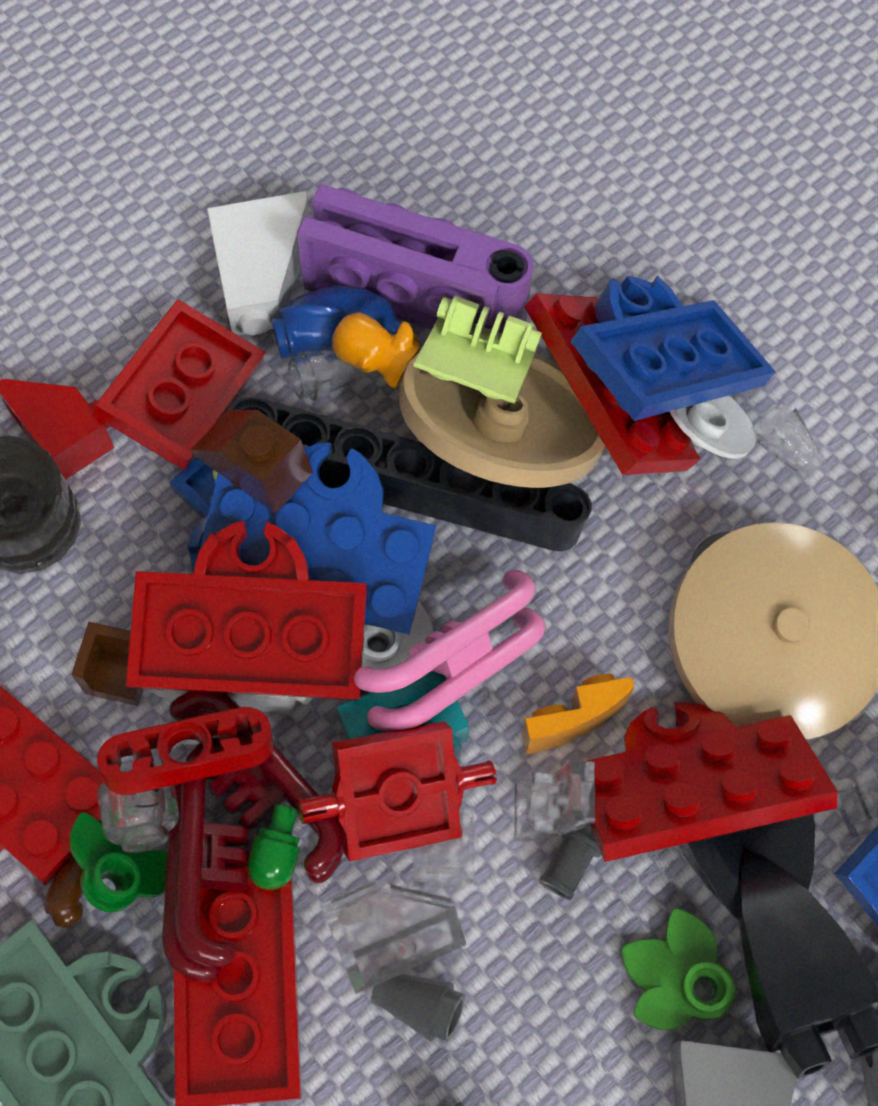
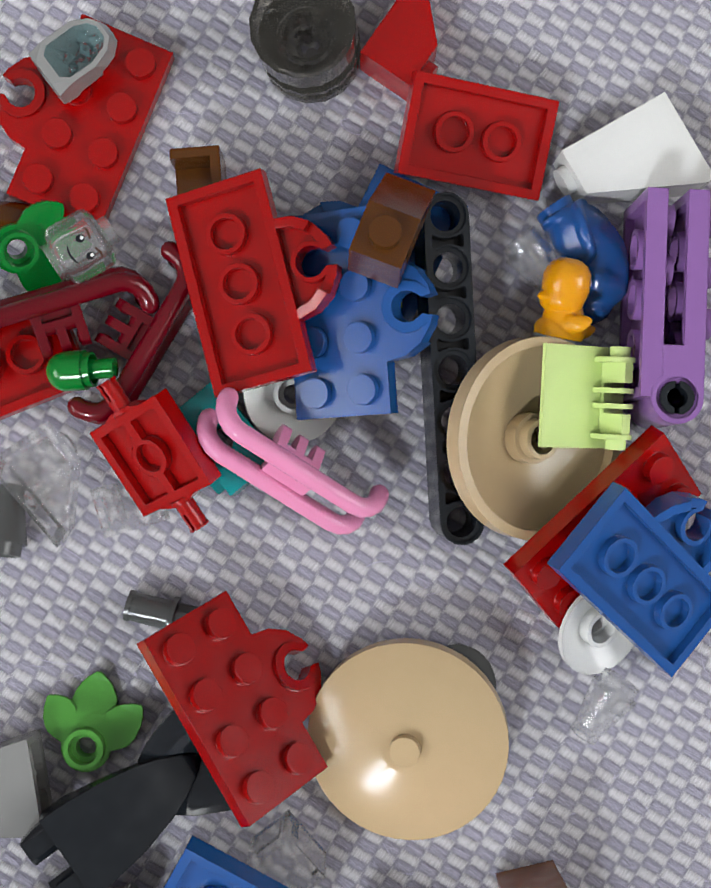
camera: 70 degrees right, 20 degrees up
(165, 736) = (118, 230): red beam -> none
(555, 802) = (187, 586): clear slope -> none
(591, 705) = (290, 594): light orange slope -> none

